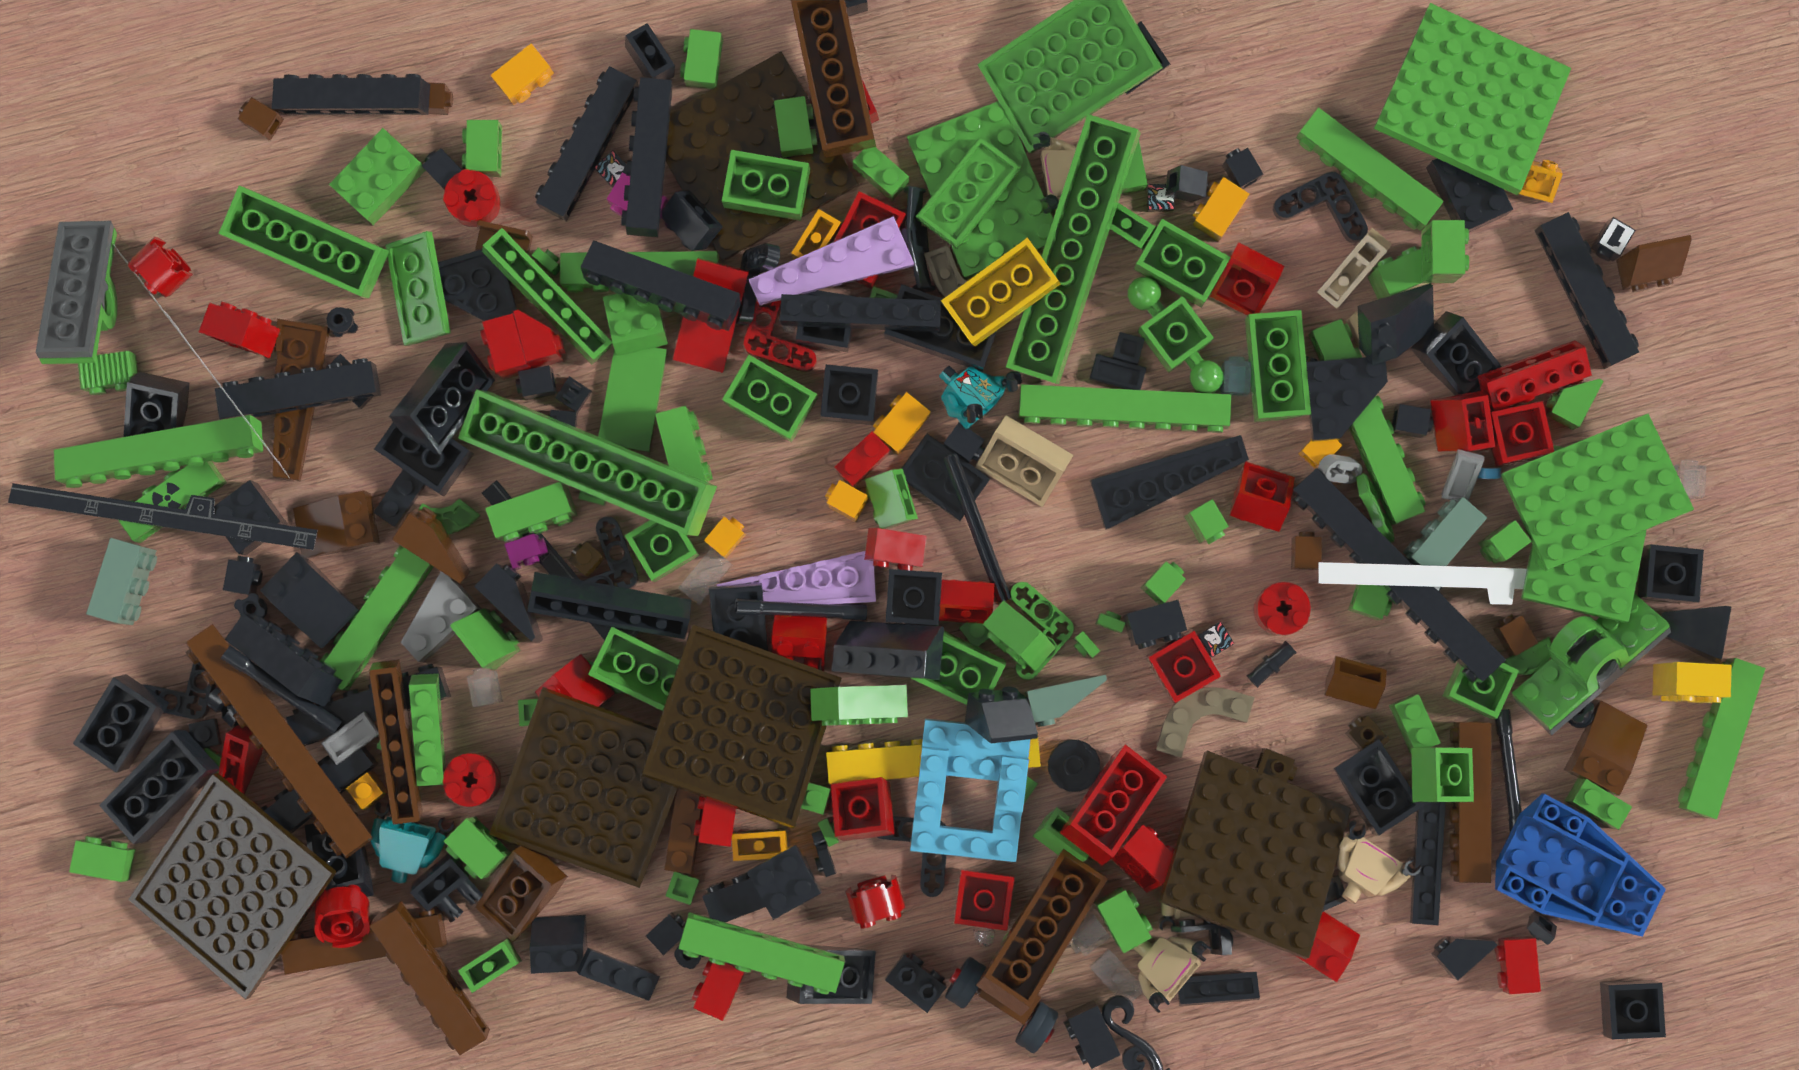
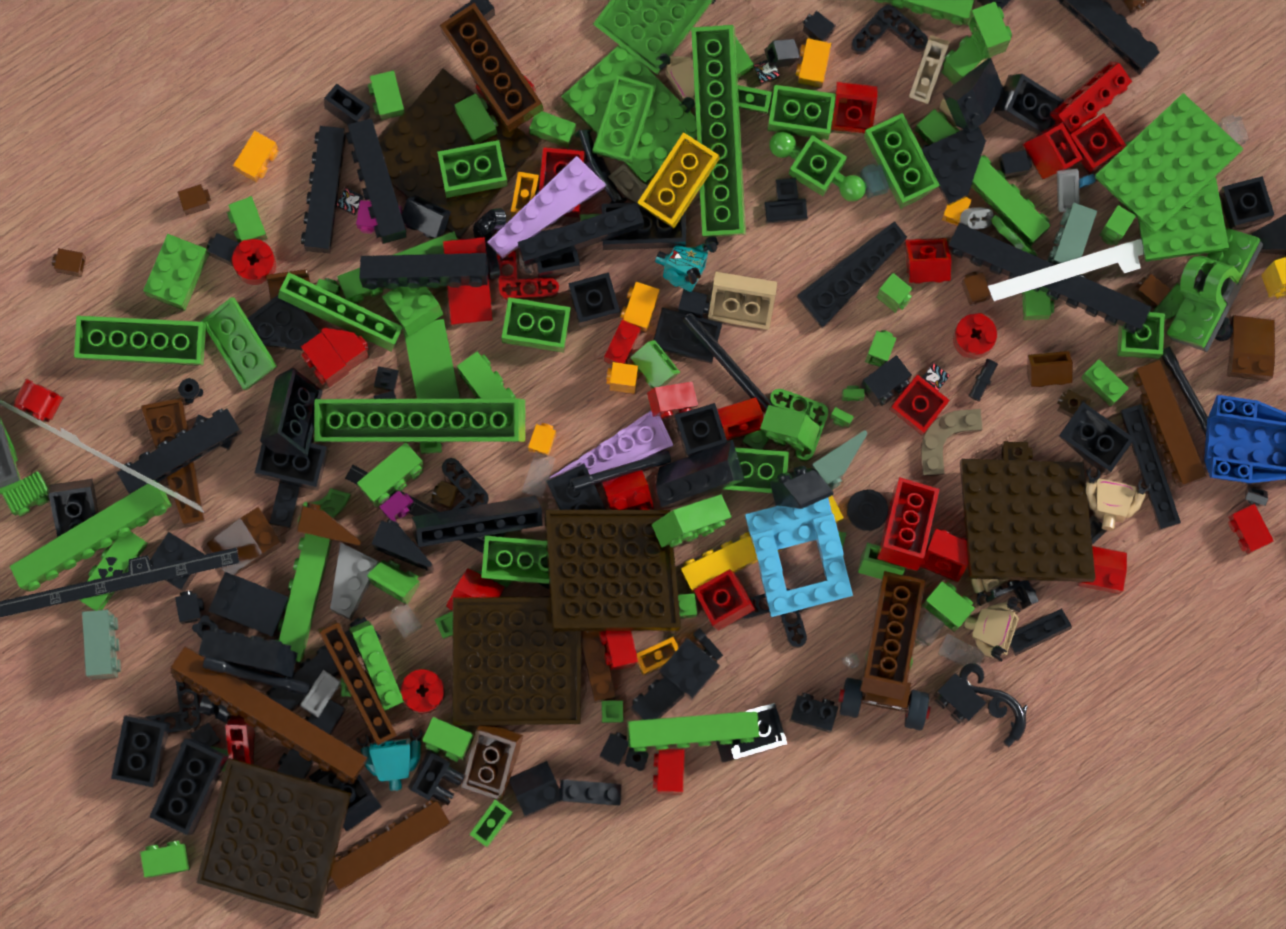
camera: 30 degrees left, 5 degrees down
(240, 328) = (117, 422): red brick -> none
(342, 916) = (367, 826): red brick -> none
(351, 95) = (133, 219): black brick -> none
(367, 790) = (347, 730): light orange brick -> none
(429, 978) = (449, 848): reddish brown brick -> none
(536, 383) = (355, 380): black brick -> none
(660, 549) = (498, 464): bright green brick -> none
(828, 831) = (706, 627): bright green plate -> none
(875, 900) = (760, 663): red brick -> none
(984, 899) = (840, 632): red brick -> none
(1125, 407) = (800, 233): bright green brick -> none
(1442, 774) = (1139, 409): bright green brick -> none
(1461, 954) = (1205, 537): black slope -> none
(1572, 403) = (1126, 107): bright green slope -> none
(1598, 803) = (1261, 389): bright green brick -> none

